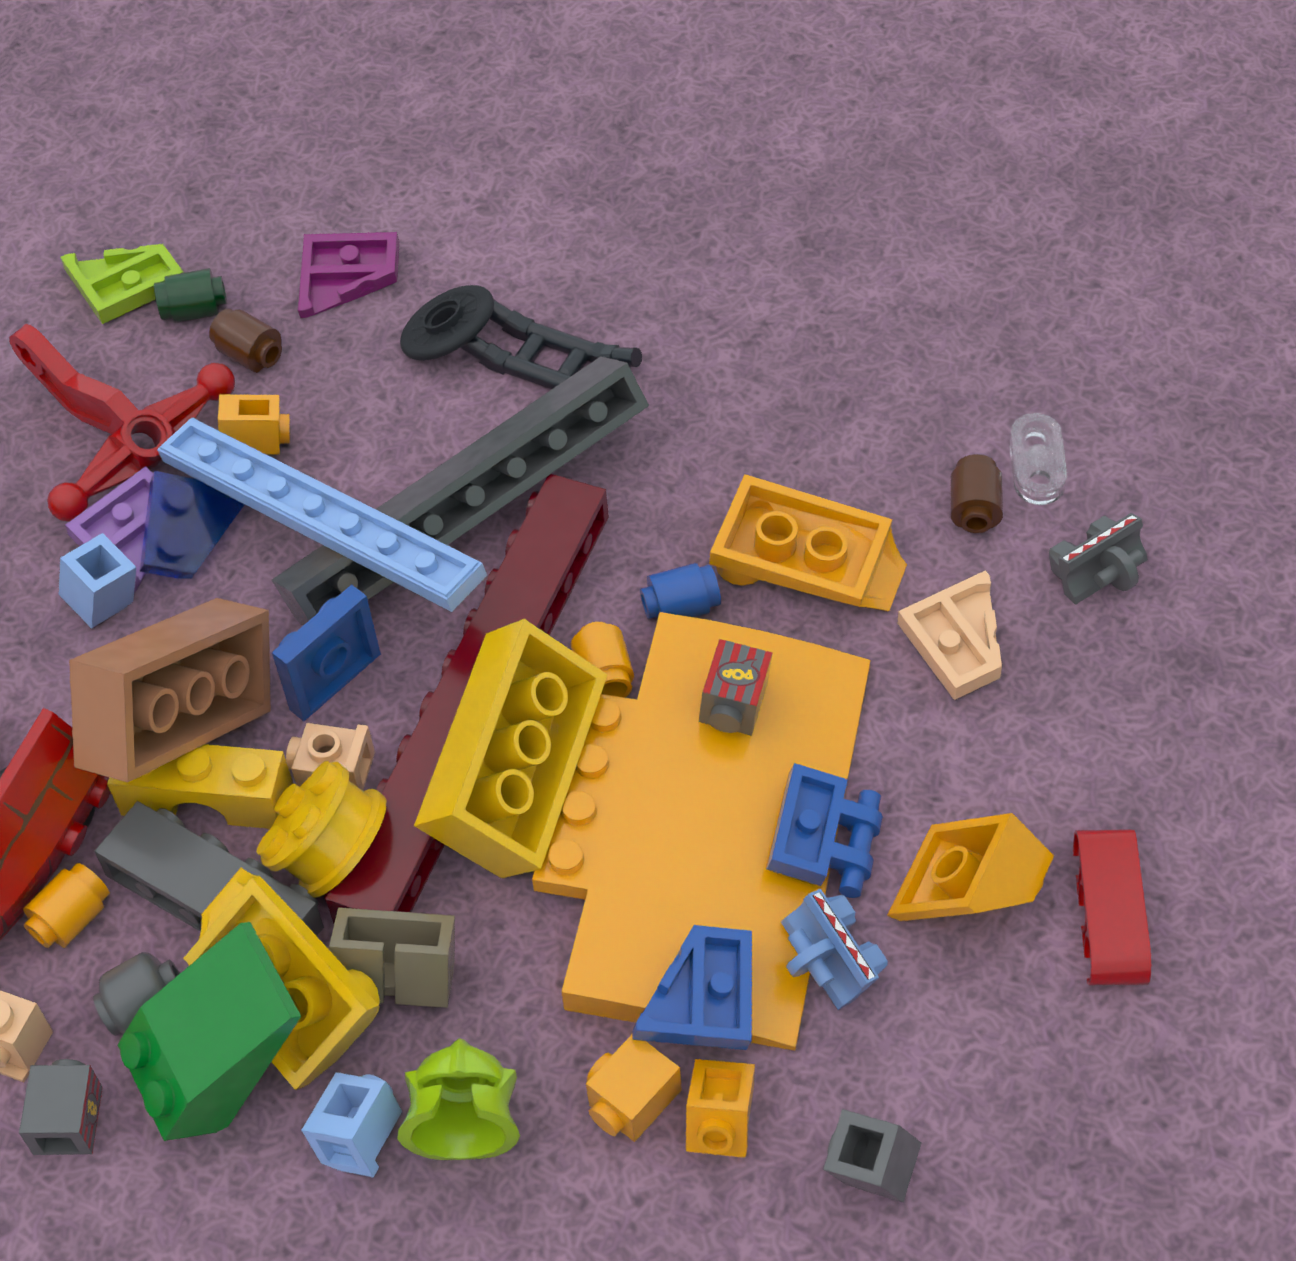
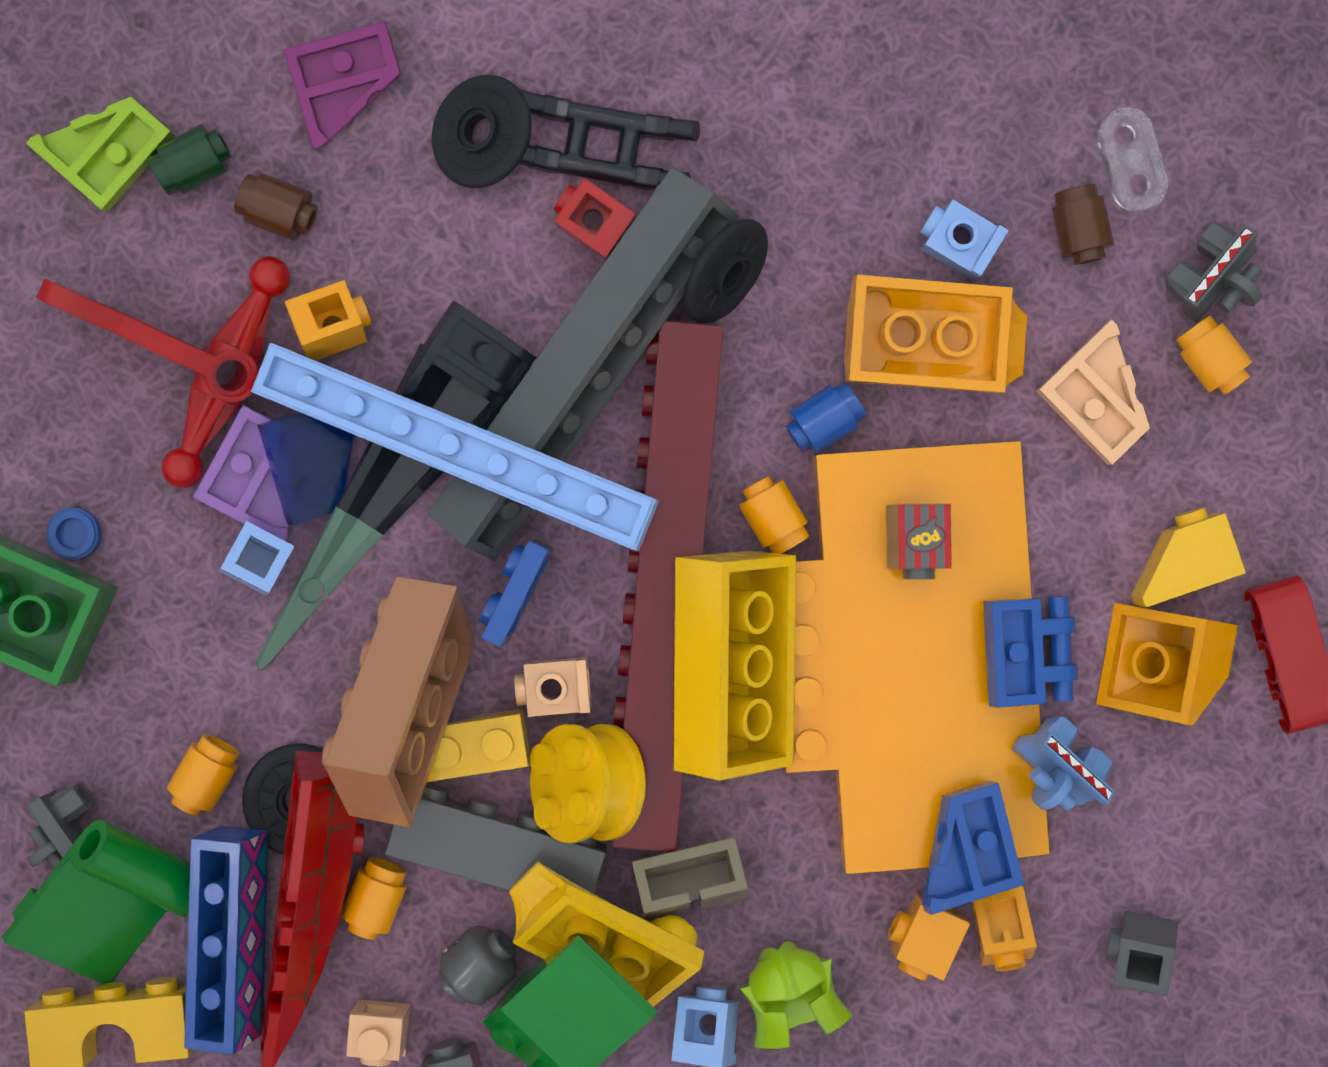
camera: 20 degrees left, 35 degrees up
(258, 548) = (460, 371): none -> black plate
(513, 390) = (587, 197): none -> red brick
(602, 433) = (726, 270): none -> black wheel
(857, 480) = (968, 258): none -> light blue brick
(1020, 781) = (1189, 558): none -> yellow slope
(1083, 624) = (1214, 356): none -> light orange brick

